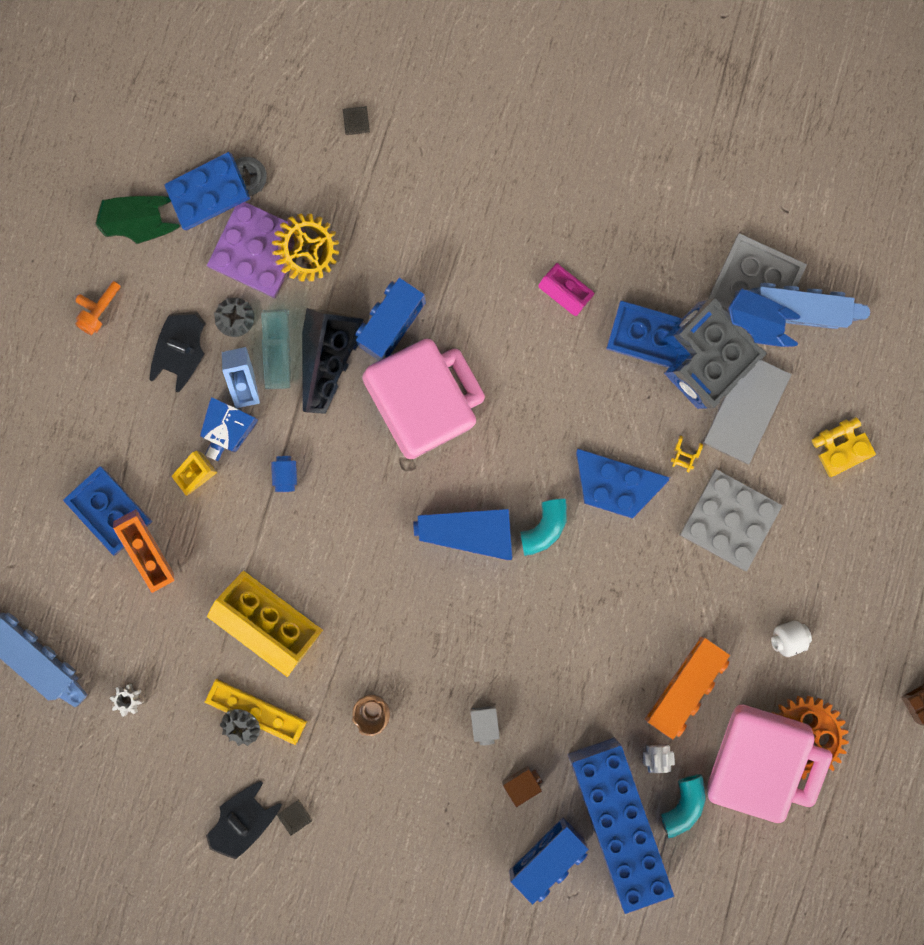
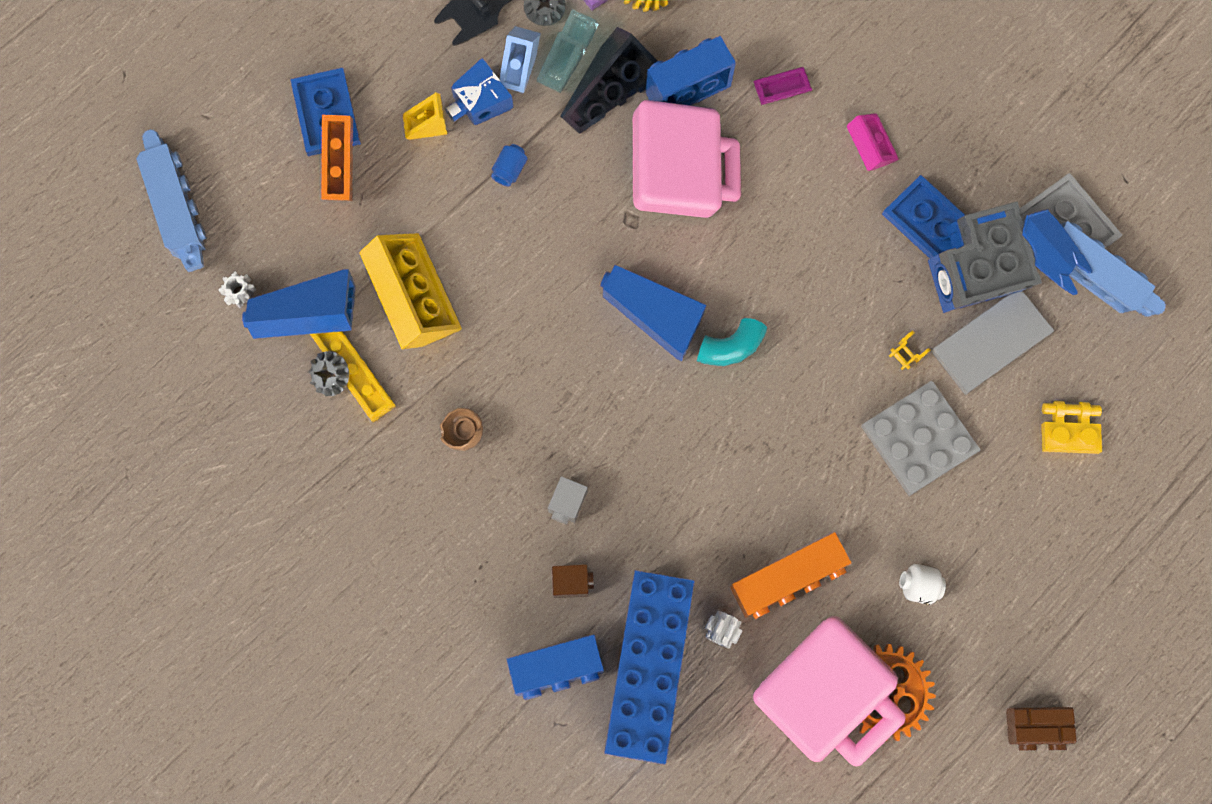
camera: 25 degrees right, 10 degrees down
(190, 686) = (304, 308): none -> blue slope
(240, 823) = (274, 467): black shield -> none
(294, 817) = (329, 490): clear smoke tile -> none
(468, 281) = (782, 85): none -> magenta tile
(616, 485) = (824, 345): blue wing -> none
(689, 806) = (727, 697): teal cylinder -> none

